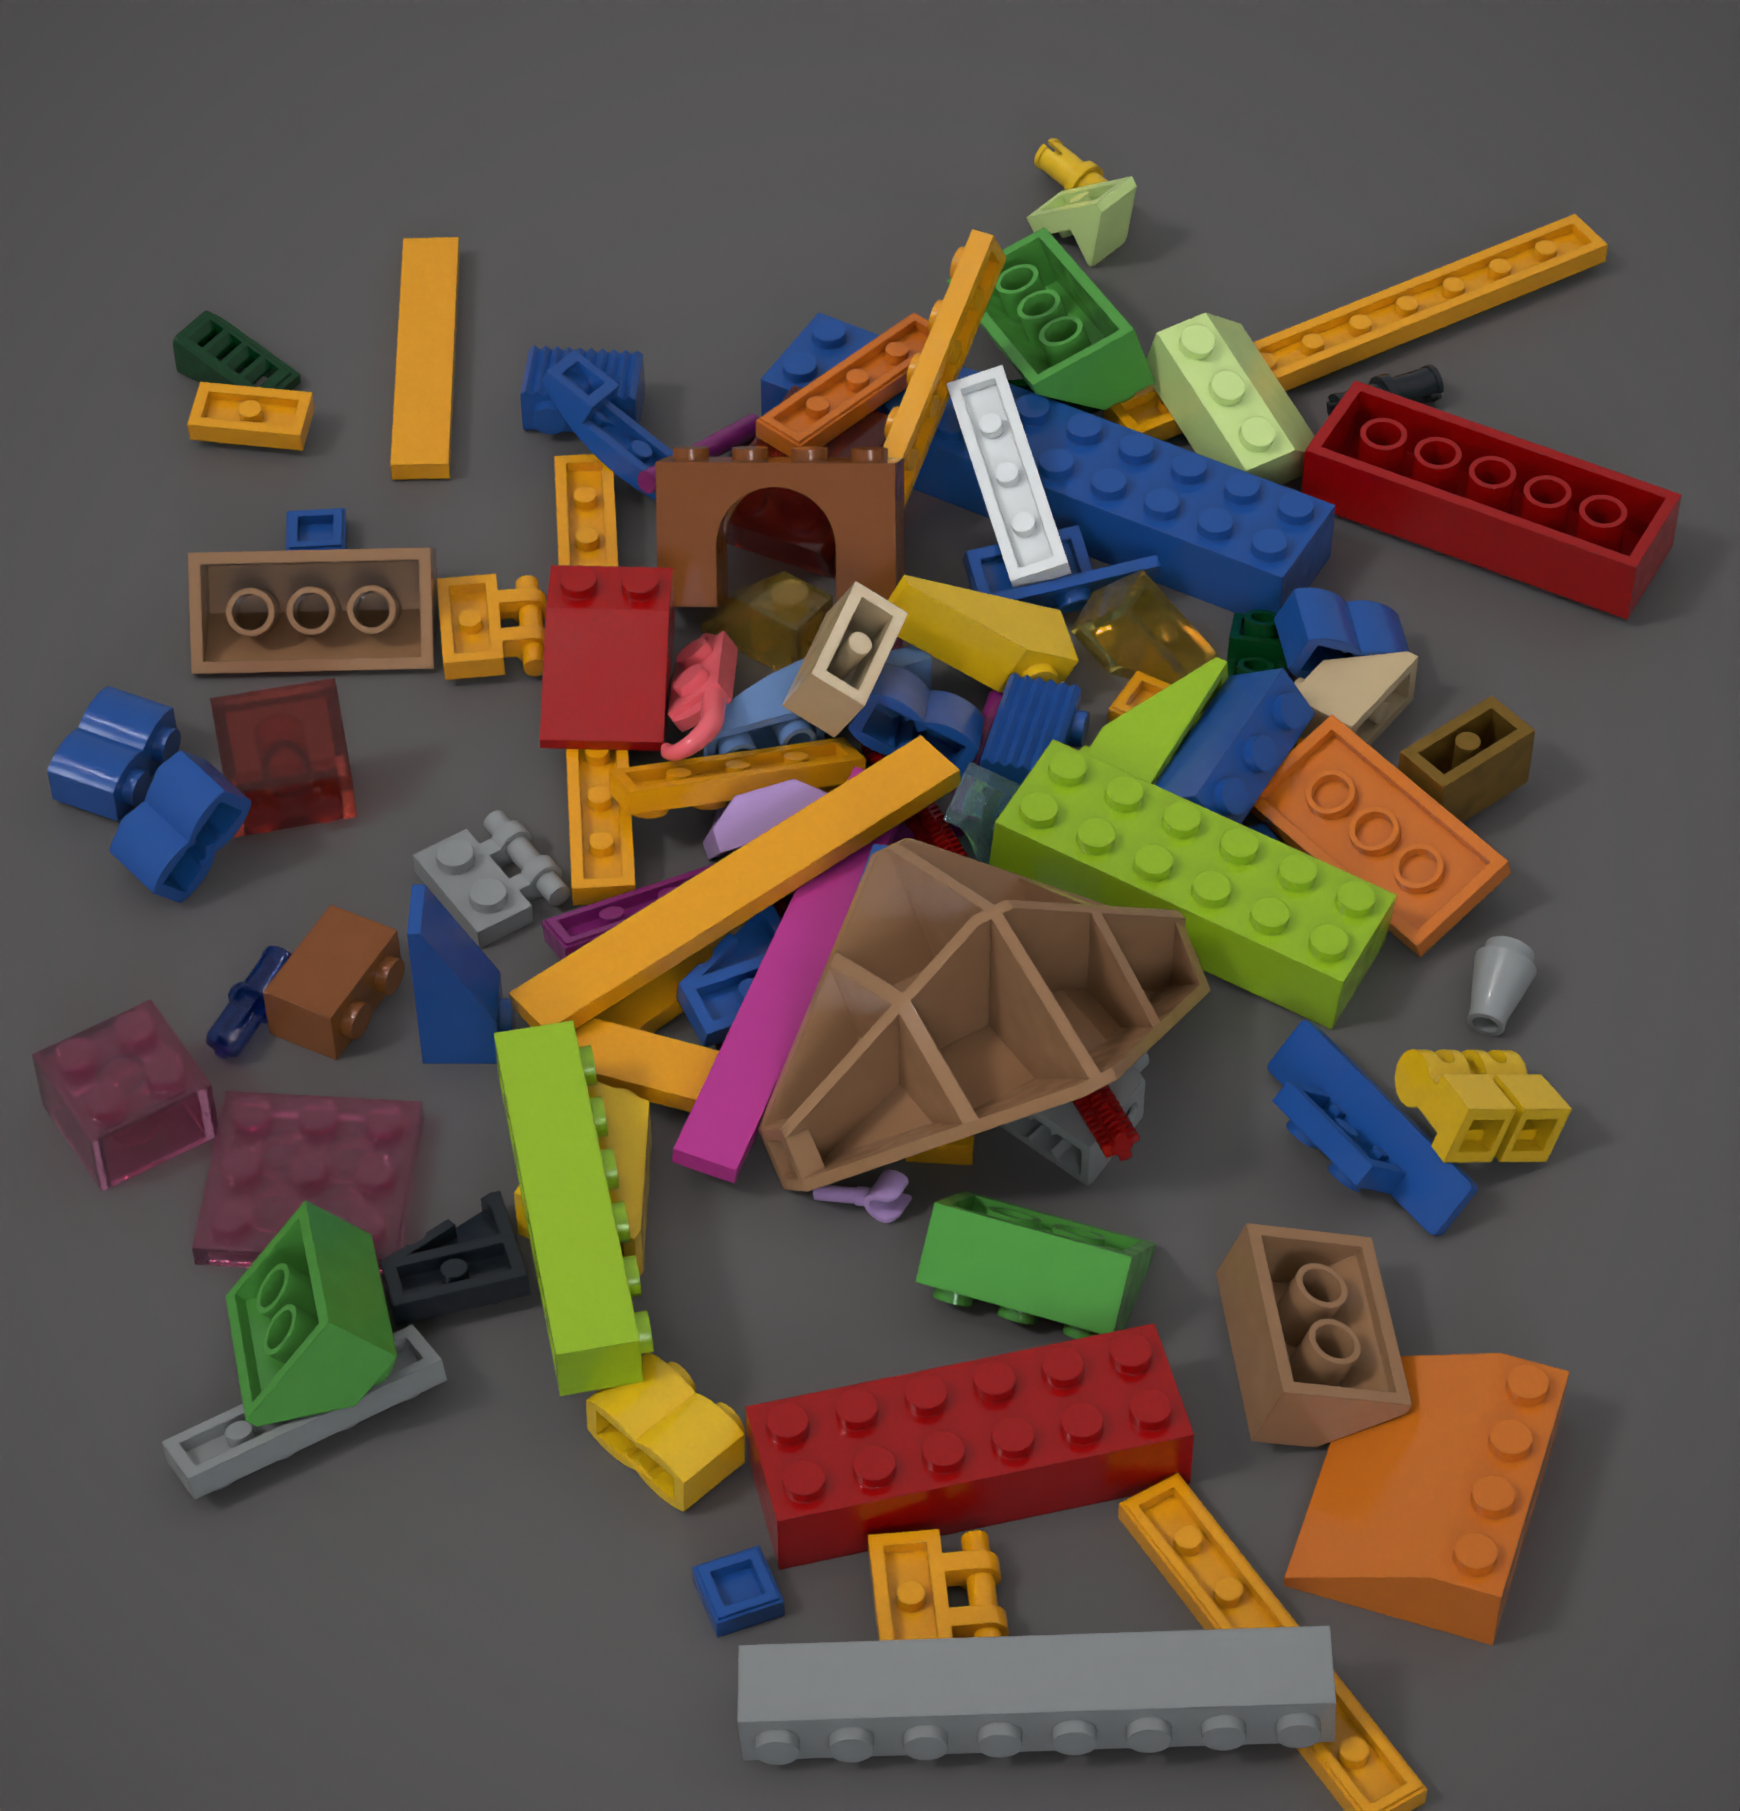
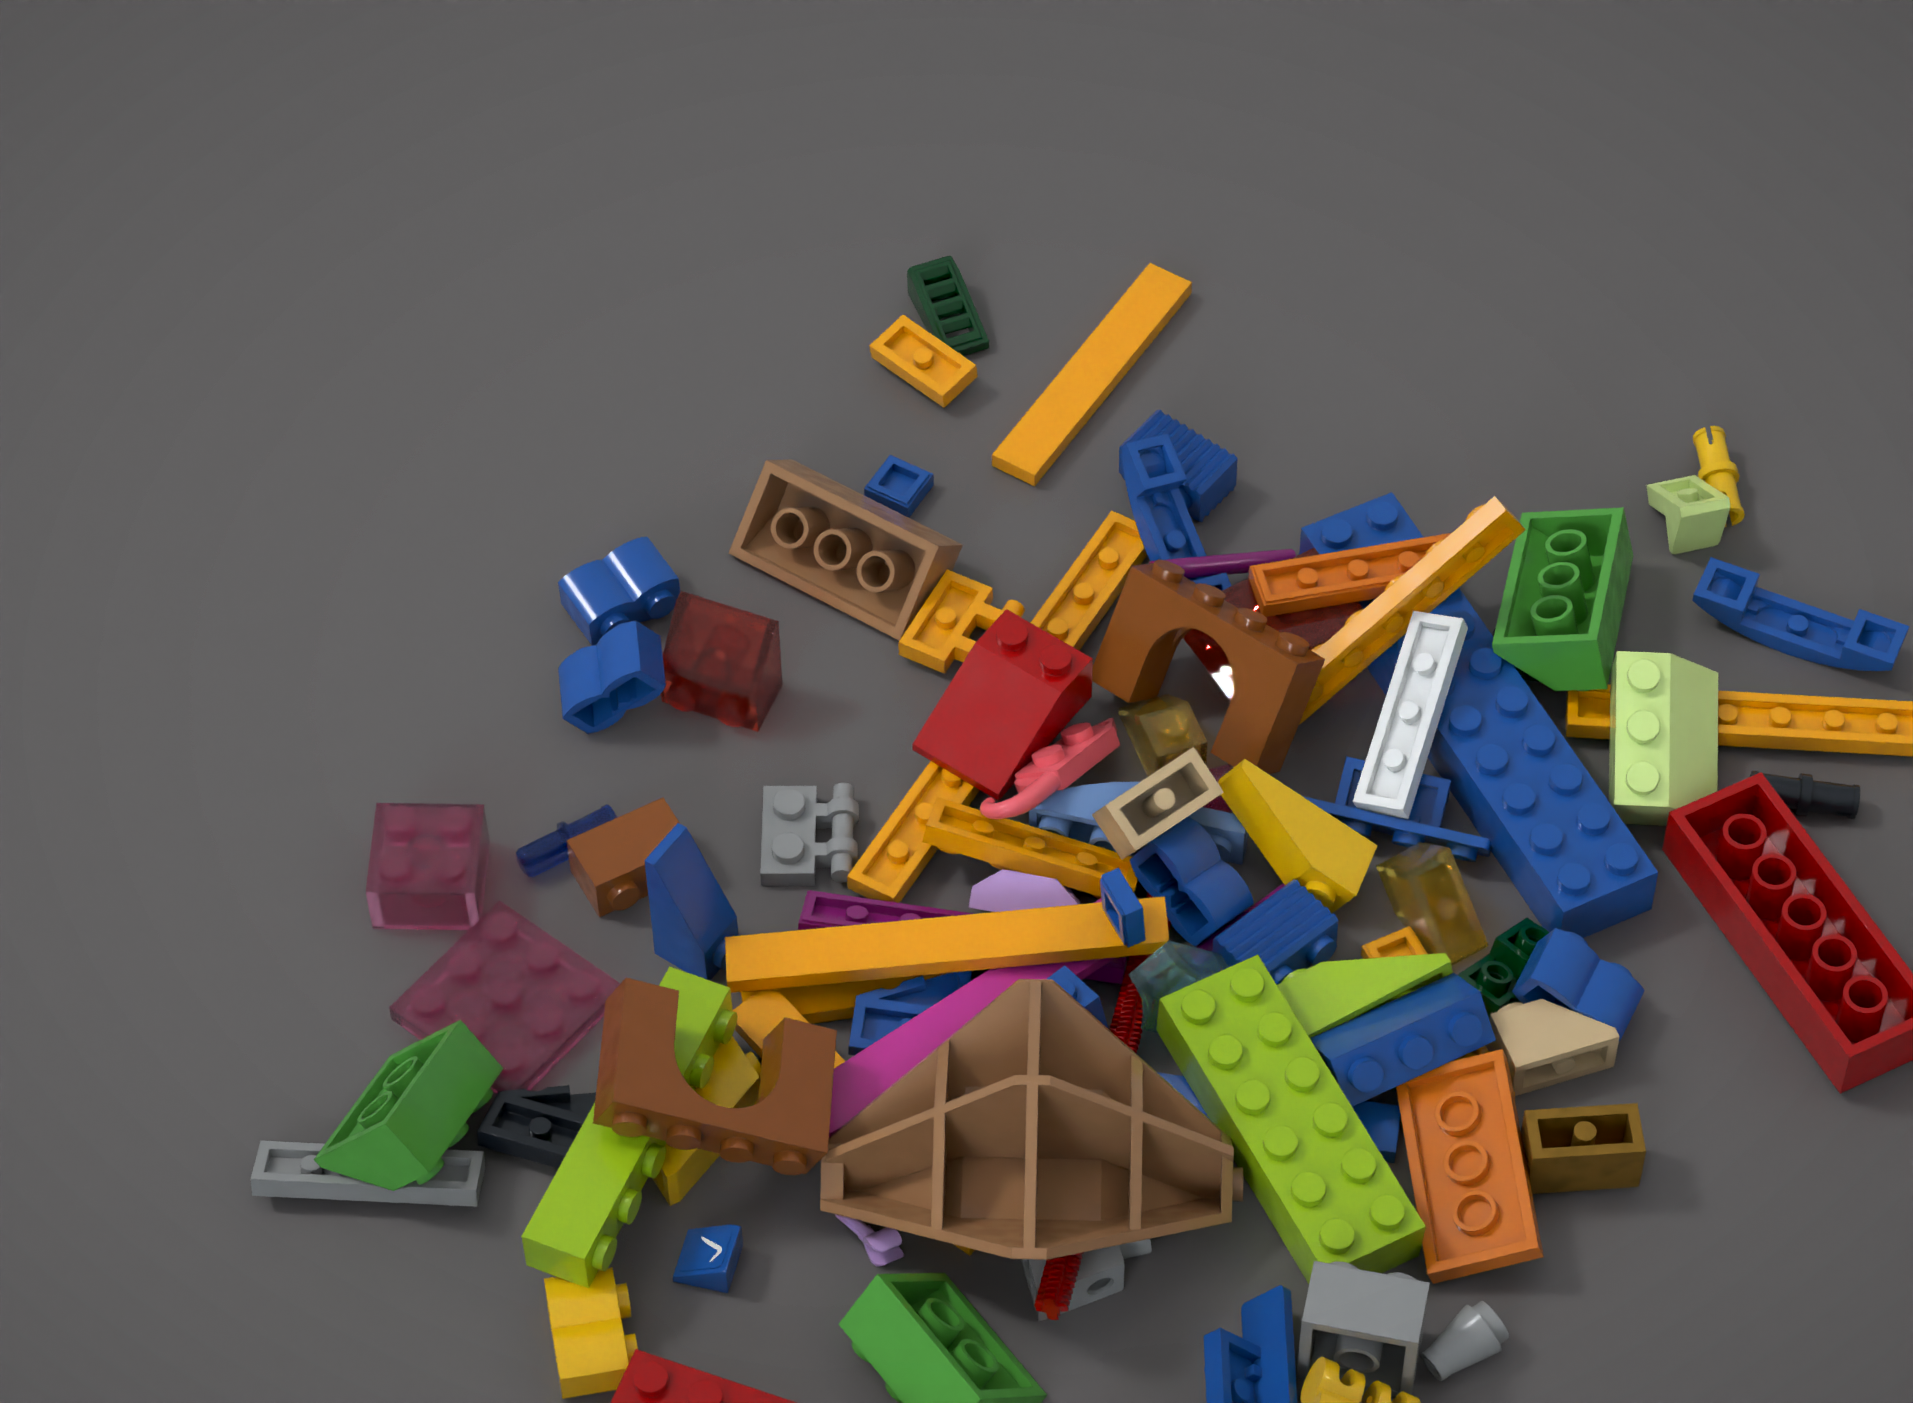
camera: 35 degrees right, 5 degrees up
(593, 1148) = (648, 1096): none -> dark orange arch
(724, 1298) = (710, 1257): none -> blue slope
(901, 755) = (1122, 908): none -> blue tile
(1260, 272) = (1796, 627): none -> blue slope
(1414, 997) = (1364, 1323): none -> light grey brick

